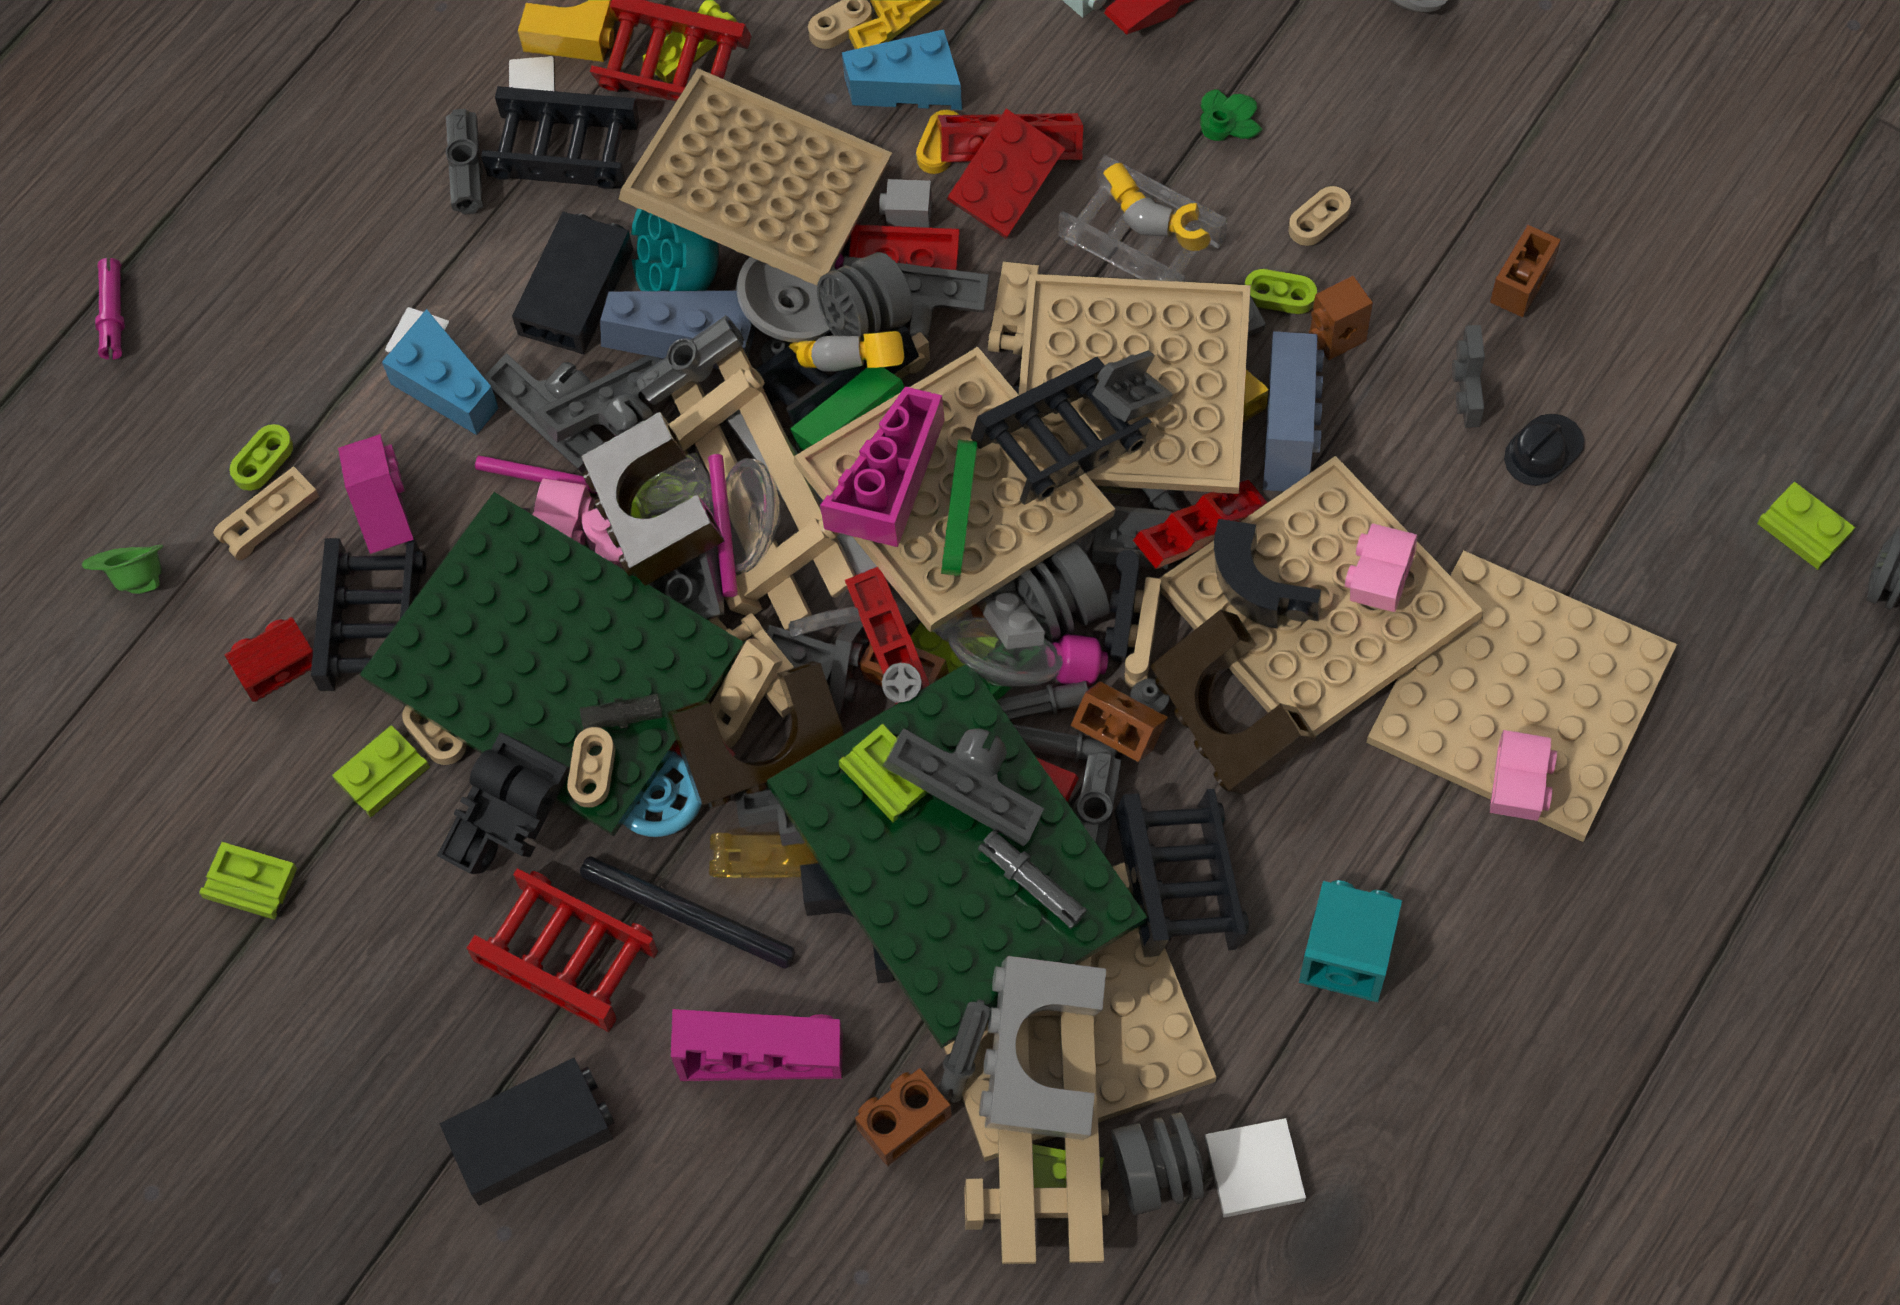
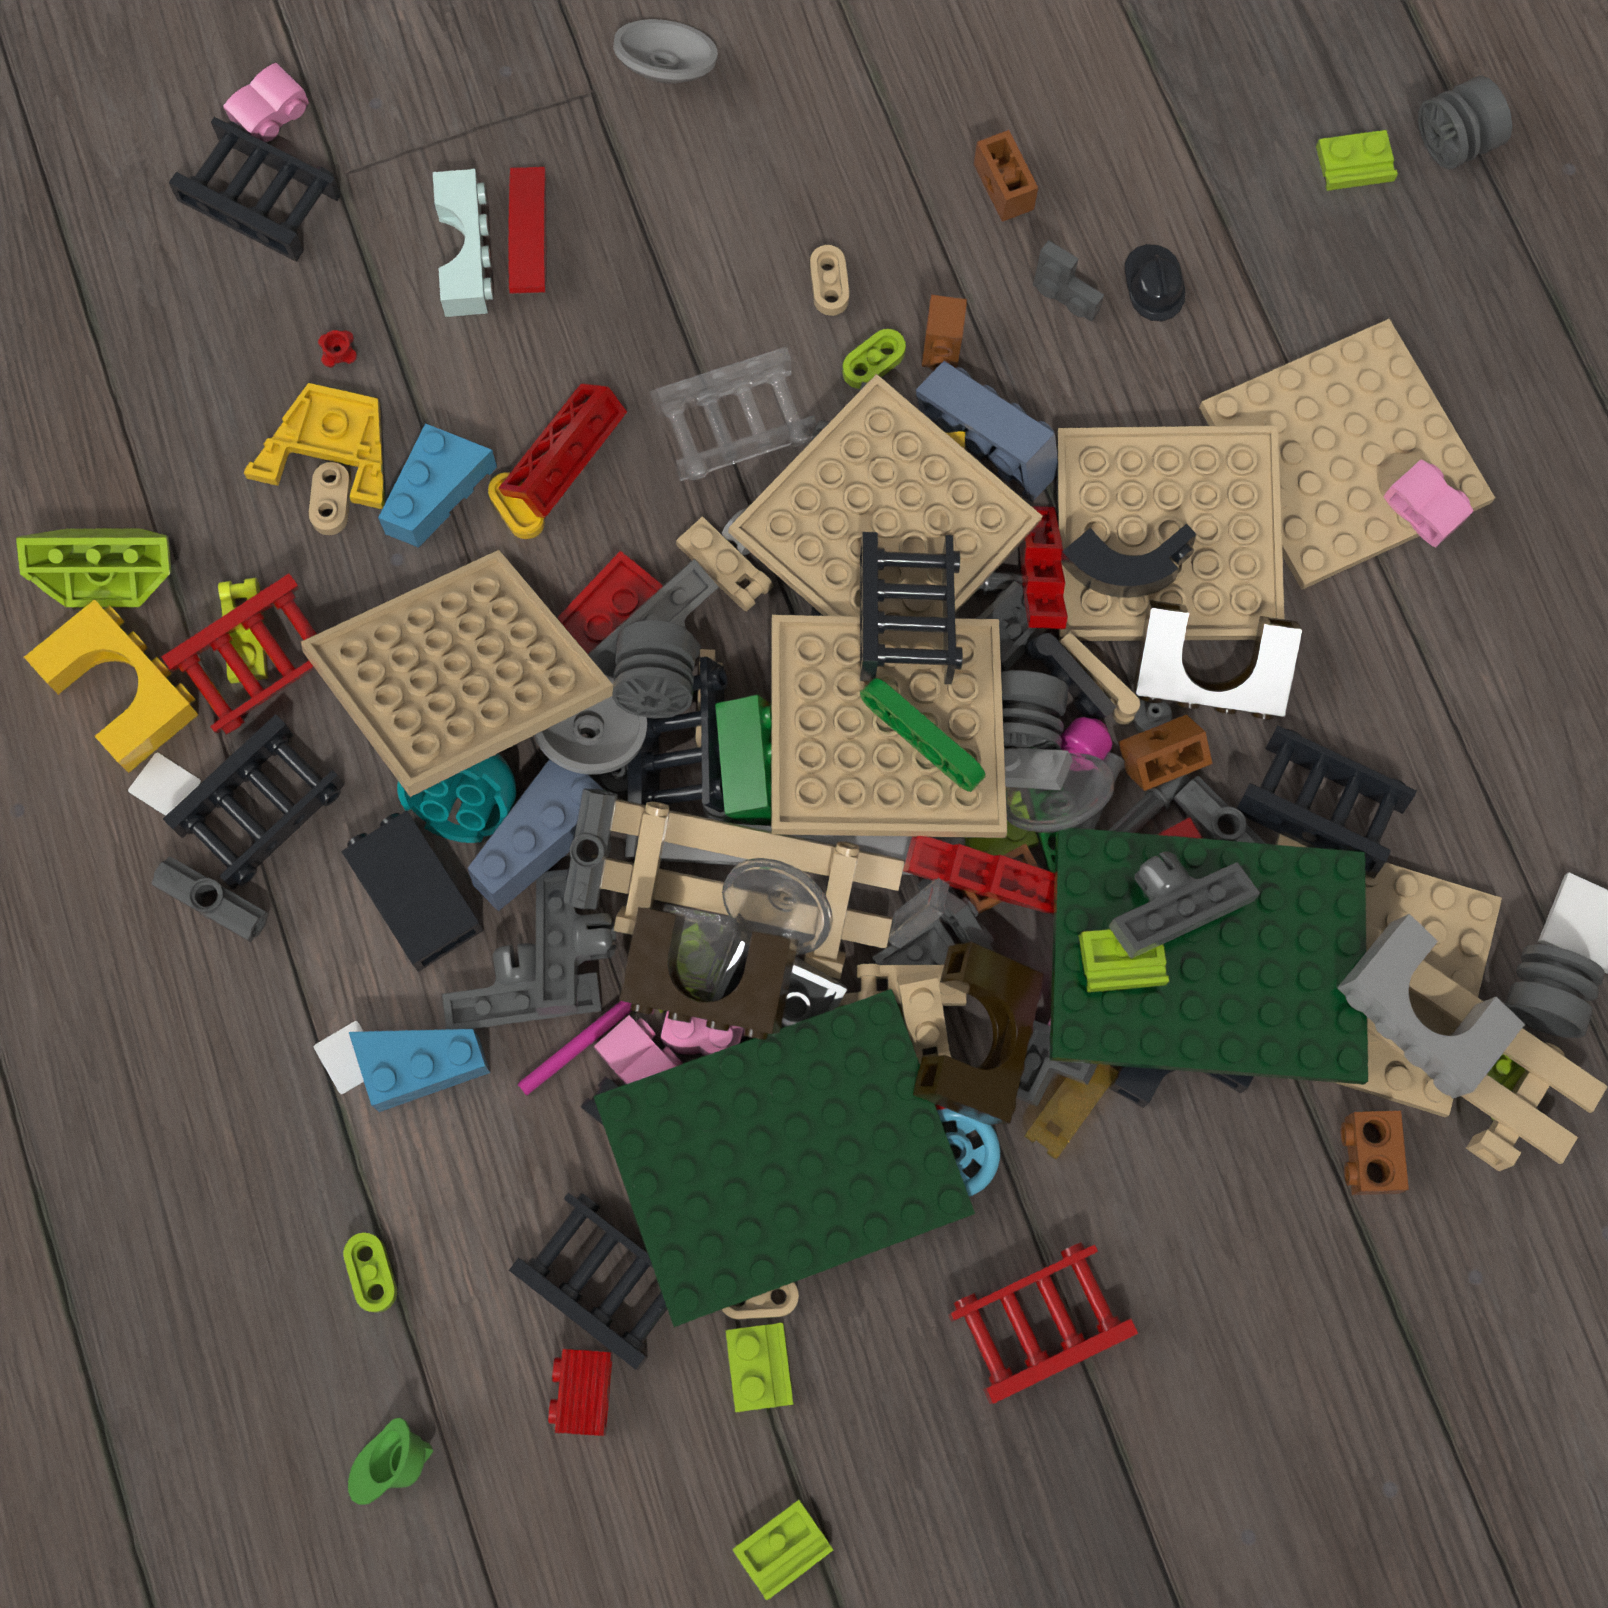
camera: 60 degrees left, 10 degrees up
(109, 320) = (112, 1318): dark pink pin -> none
(265, 513) = (430, 1303): tan plate -> none
(374, 491) = (496, 1194): dark pink wedge -> none
(506, 804) = (892, 1283): black plate -> none
(528, 1130) = (1183, 1459): black brick -> none
(589, 768) = (918, 1190): tan plate -> none
(621, 712) = (887, 1132): clear smoke pin -> none
(687, 912) = (1075, 1200): black axle -> none
(722, 518) = (753, 923): dark pink bar -> none
(755, 1046) = (1241, 1225): dark pink wedge -> none
(849, 352) = (697, 717): piece -> none
(885, 479) = (860, 769): dark pink wedge -> none
(901, 676) = (1048, 891): light grey wheel -> none
(907, 203) = (561, 573): light grey brick -> none
(960, 1063) = (1379, 1079): dark grey axle -> none
(1005, 173) = (602, 477): red plate -> none
(1029, 876) = (1273, 916): dark grey pin -> none
(1130, 389) = (911, 529): dark grey bracket -> none
(1151, 218) = (738, 402): yellow piece -> none
(1228, 116) = (679, 276): green plate -> none
(1350, 940) = (1466, 719): teal slope -> none
(1382, 567) = (1193, 466): bright pink brick -> none

